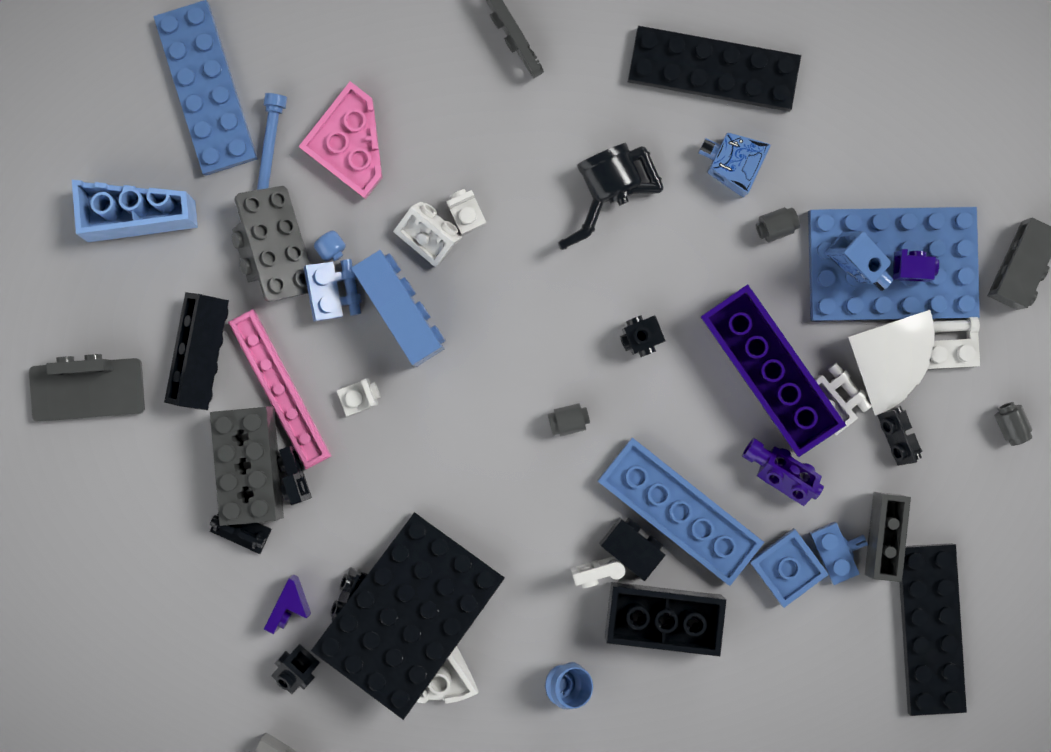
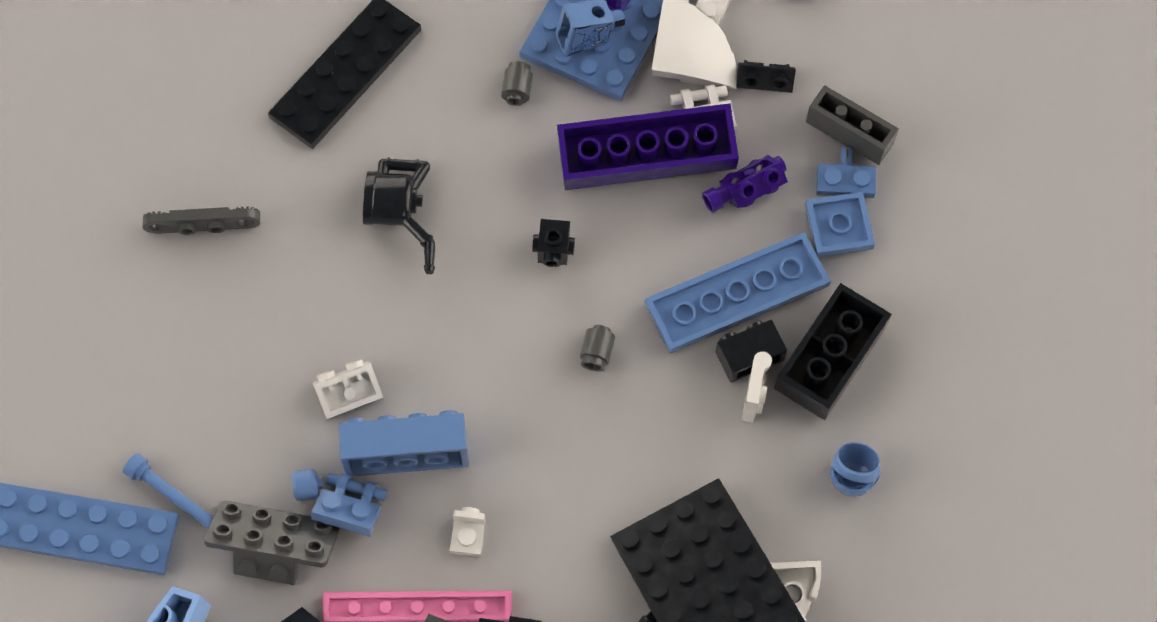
camera: 60 degrees left, 20 degrees down
(348, 141) = (216, 418): bright pink plate -> none
(466, 211) = (346, 344): white bracket -> none
(735, 161) = (439, 91): medium blue torso -> none
(932, 631) = (961, 134): black plate -> none

